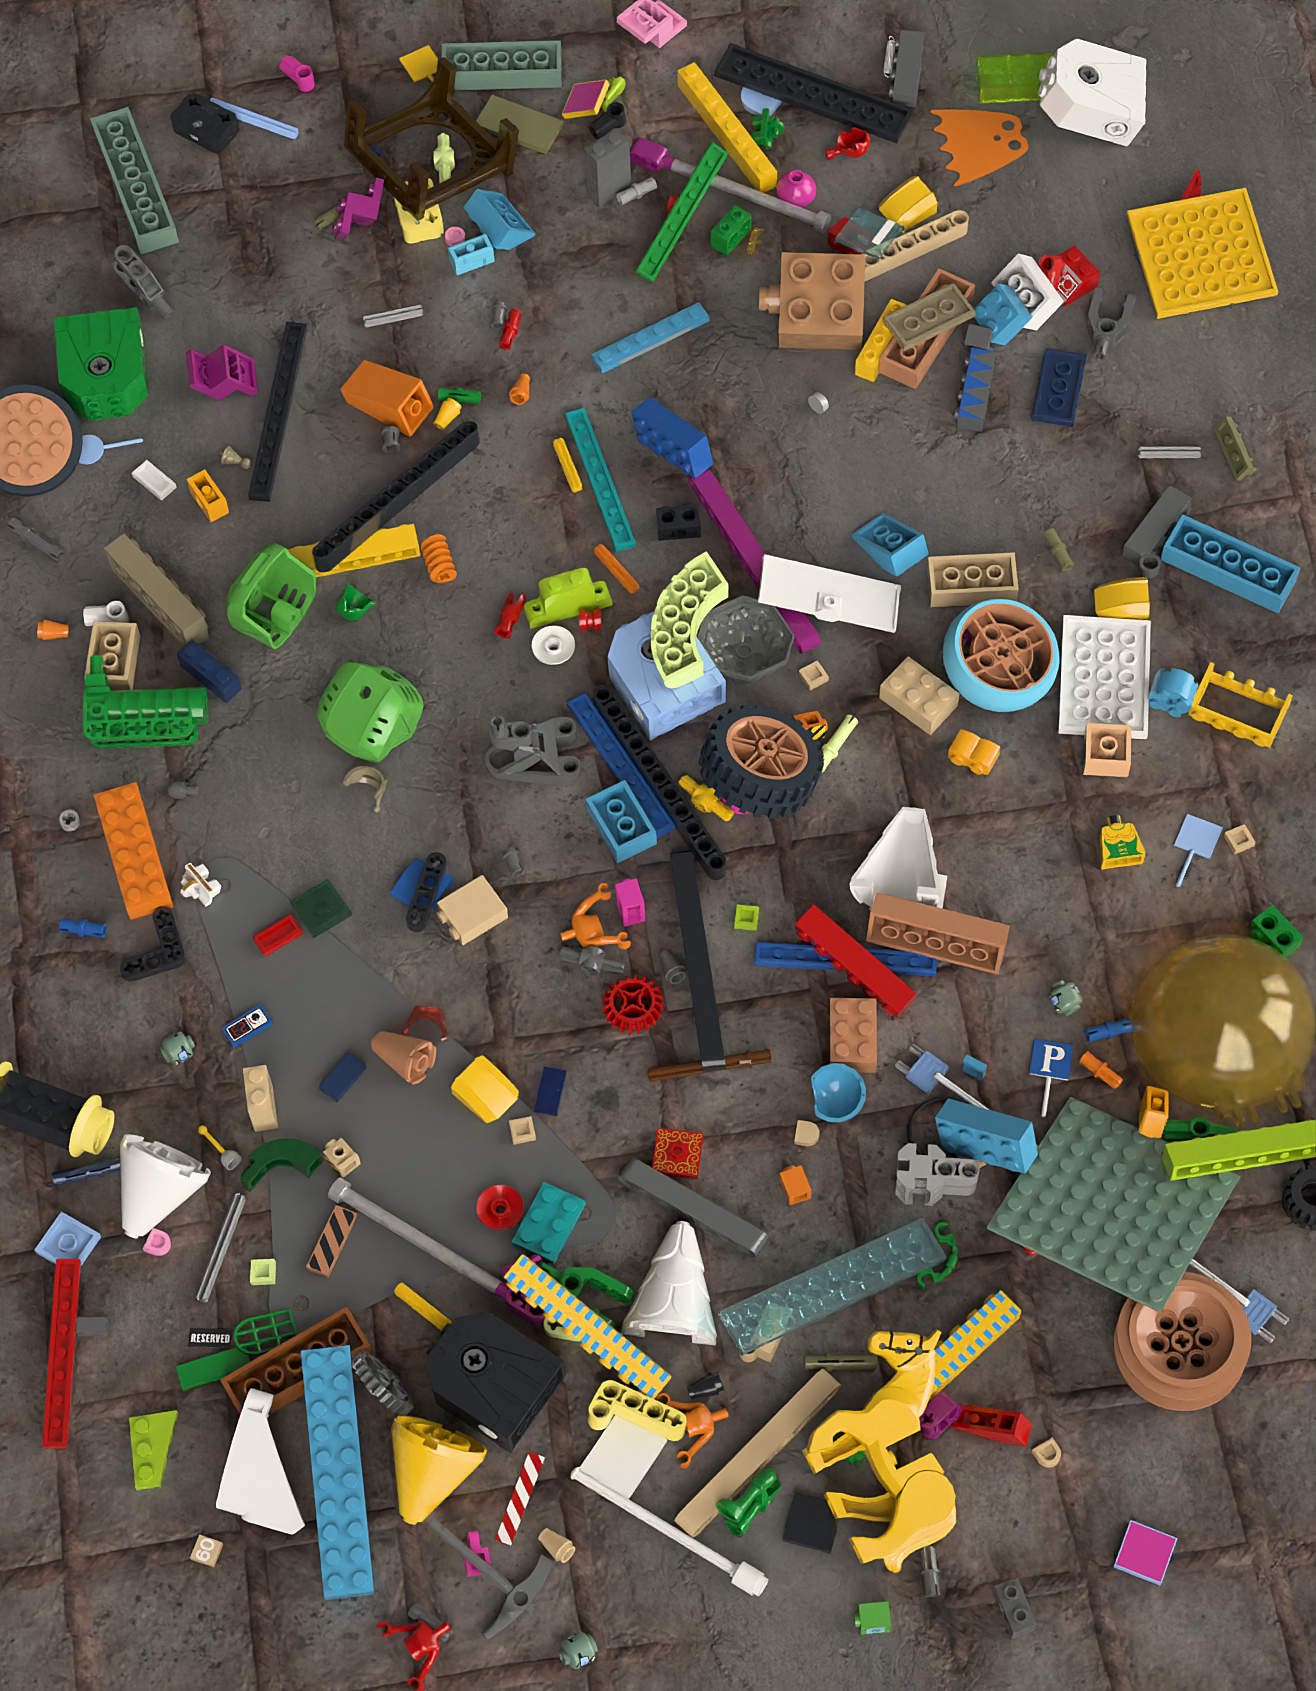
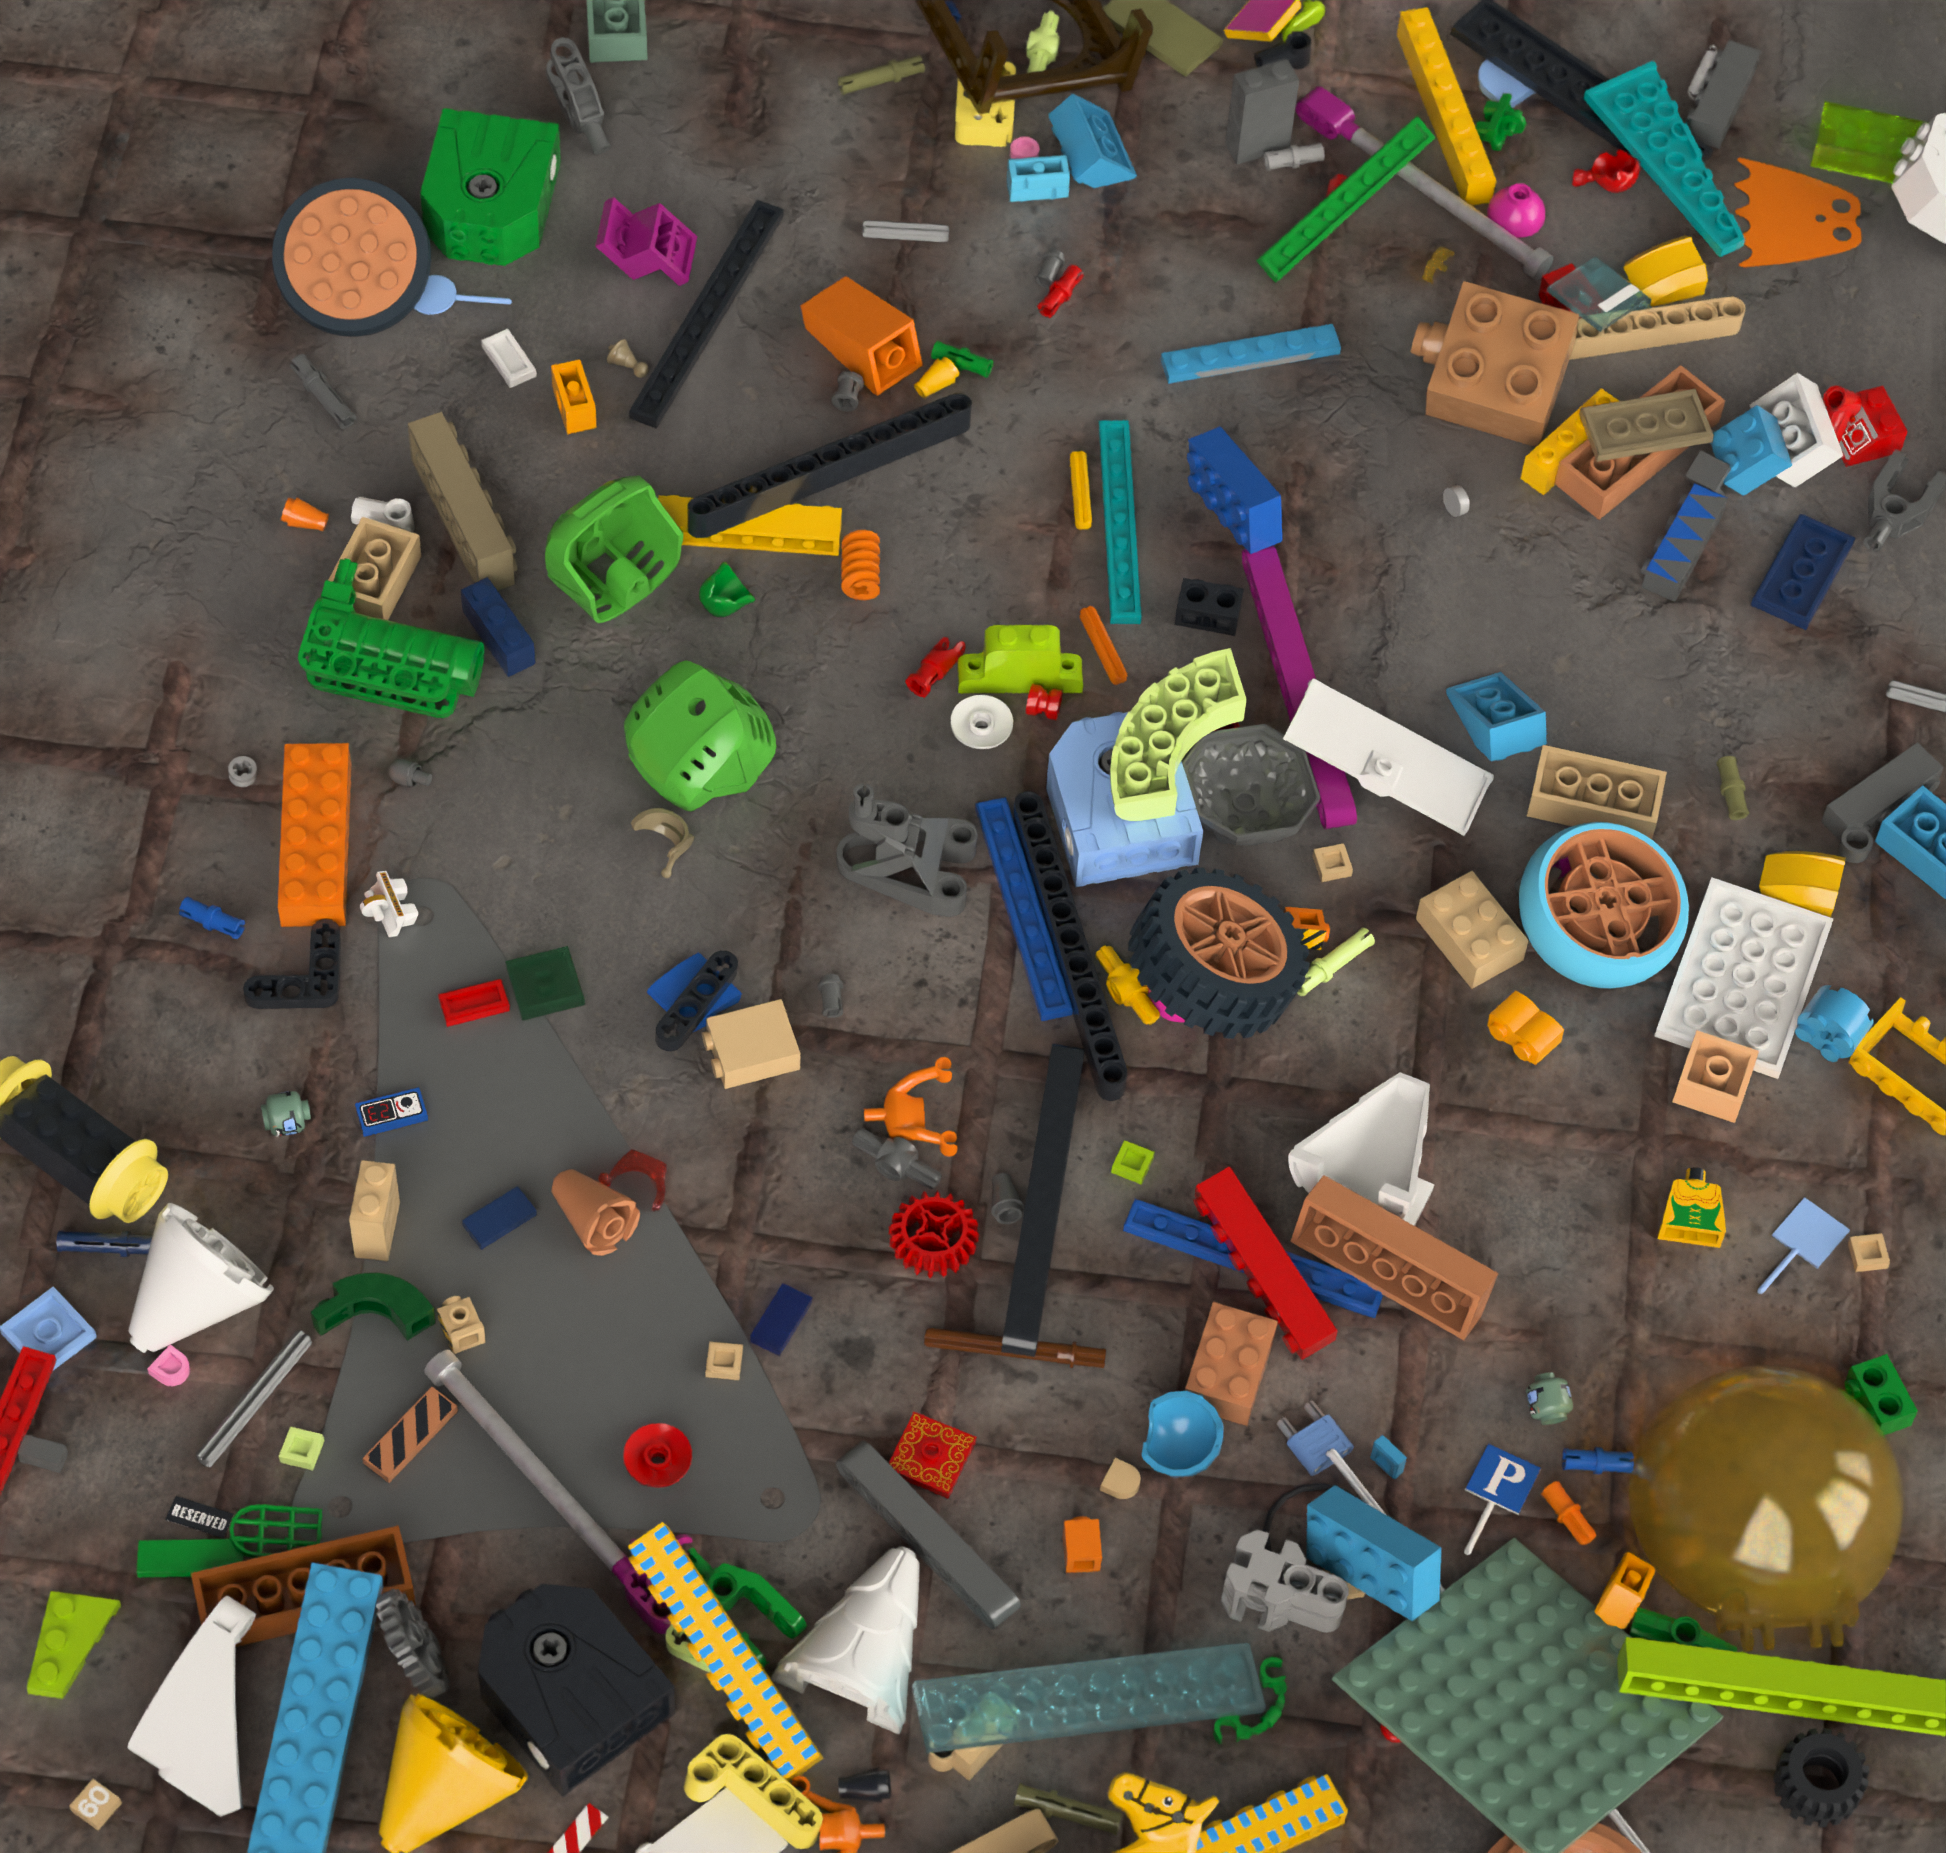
camera: 10 degrees right, 5 degrees down
(229, 1158) = (306, 1281): light grey hinge -> none
(358, 209) = (902, 77): magenta bracket -> none
(421, 1306) = (502, 1556): yellow axle -> none
(484, 1090) = (689, 1290): yellow slope -> none
(520, 391) = (1047, 374): orange cone -> none
(548, 1222) = (719, 1497): teal plate -> none
(621, 821) = (998, 982): dark azure brick -> none
(630, 902) = (974, 1093): dark pink brick -> none
(731, 230) = (1407, 241): green brick -> none
(869, 108) = (1652, 131): none -> teal wing

